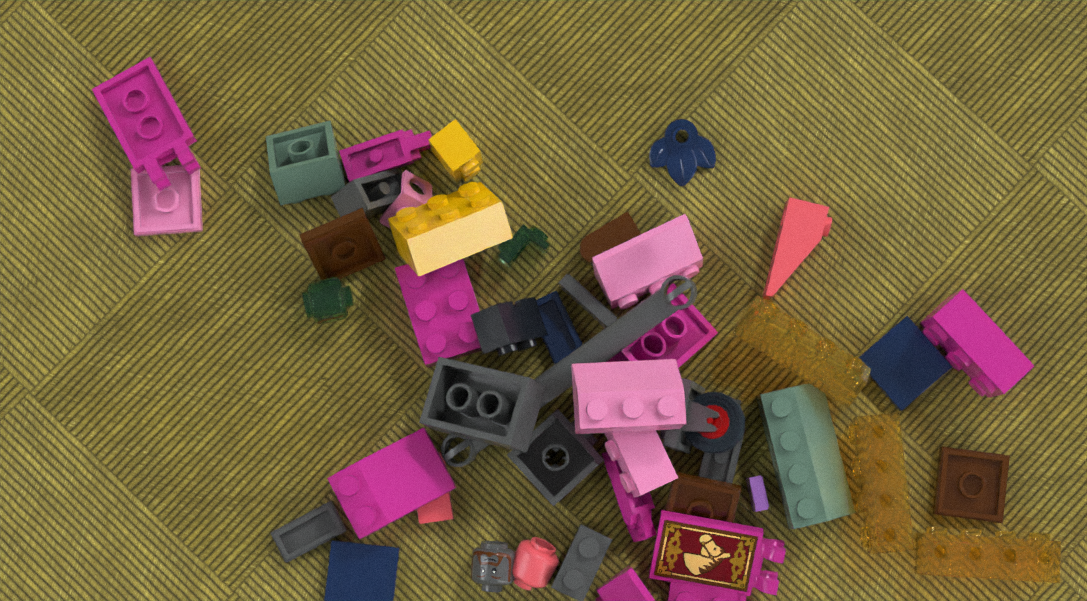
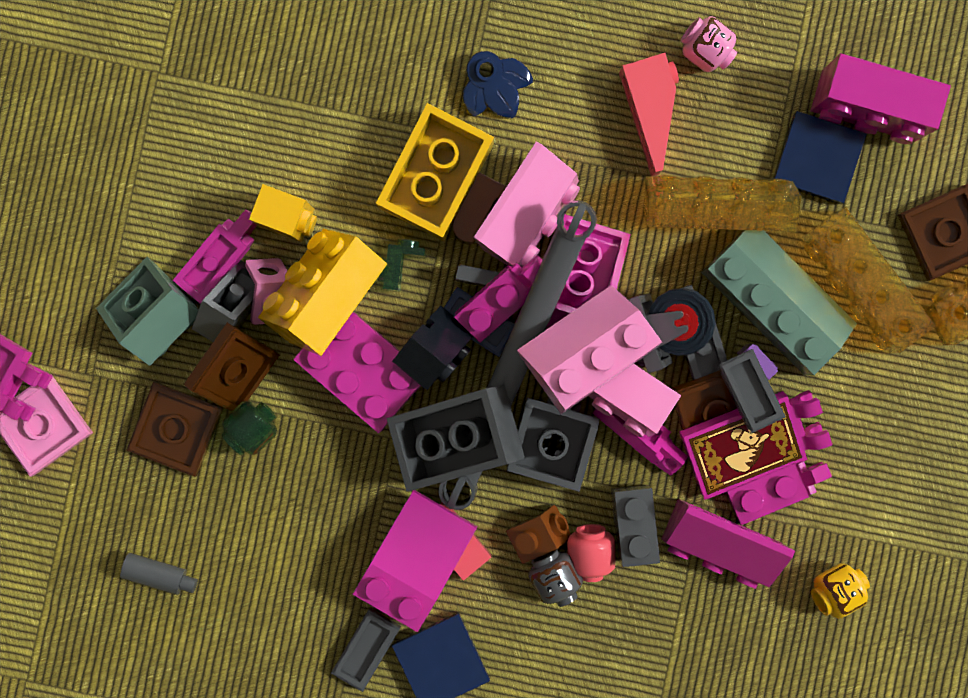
camera: 30 degrees left, 5 degrees up
(183, 371) = (157, 574): none -> dark grey cylinder
(268, 266) = (175, 429): none -> reddish brown tile
(501, 524) = (539, 534): none -> dark orange bracket
(581, 318) = (498, 299): none -> dark pink hinge
(593, 191) = (435, 172): none -> yellow brick
(736, 511) = (751, 391): none -> dark grey tile
(868, 221) = (709, 44): none -> bright pink head

